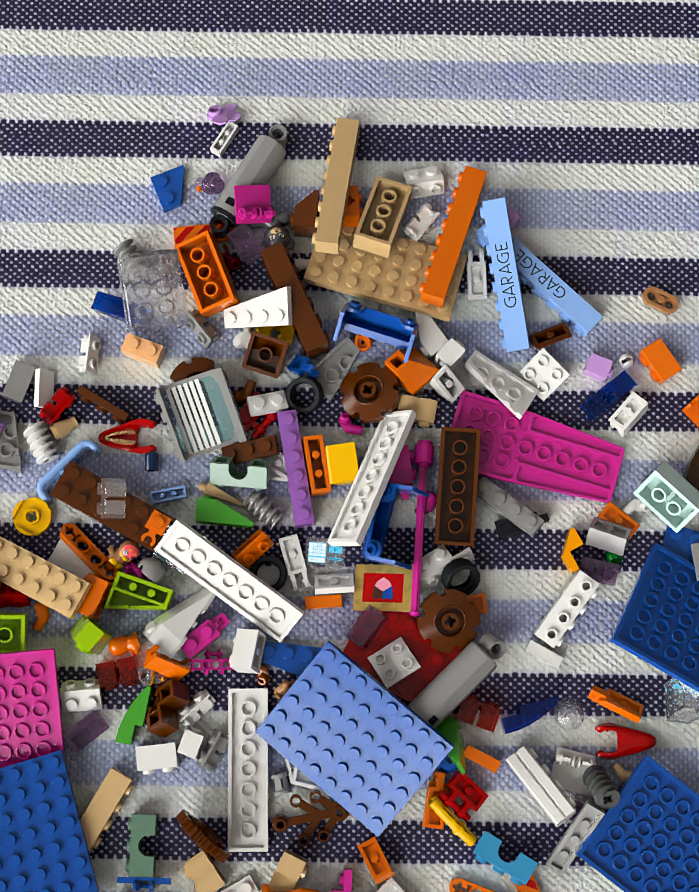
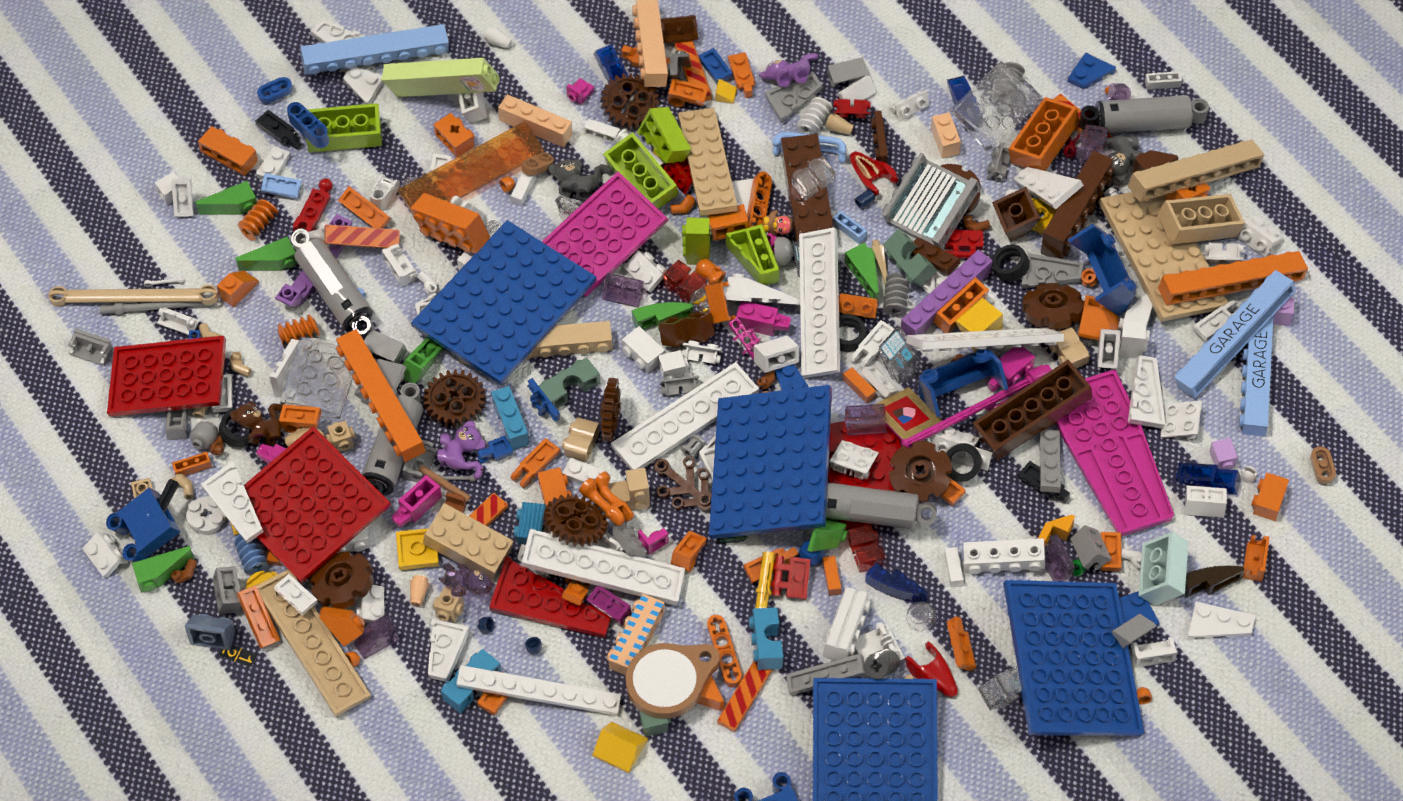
camera: 55 degrees right, 20 degrees down
(43, 514) = (757, 158): yellow plate -> none
(157, 525) = (817, 222): orange plate -> none
(222, 115) = (1178, 62): lavender plate -> none
(253, 204) = (1126, 123): dark pink hinge -> none
(267, 403) = (979, 240): white plate -> none
(302, 365) = (1031, 247): blue plate -> none
(347, 425) = (1013, 312): dark pink arm -> none
(550, 336) = (1217, 401): reddish brown slope -> none

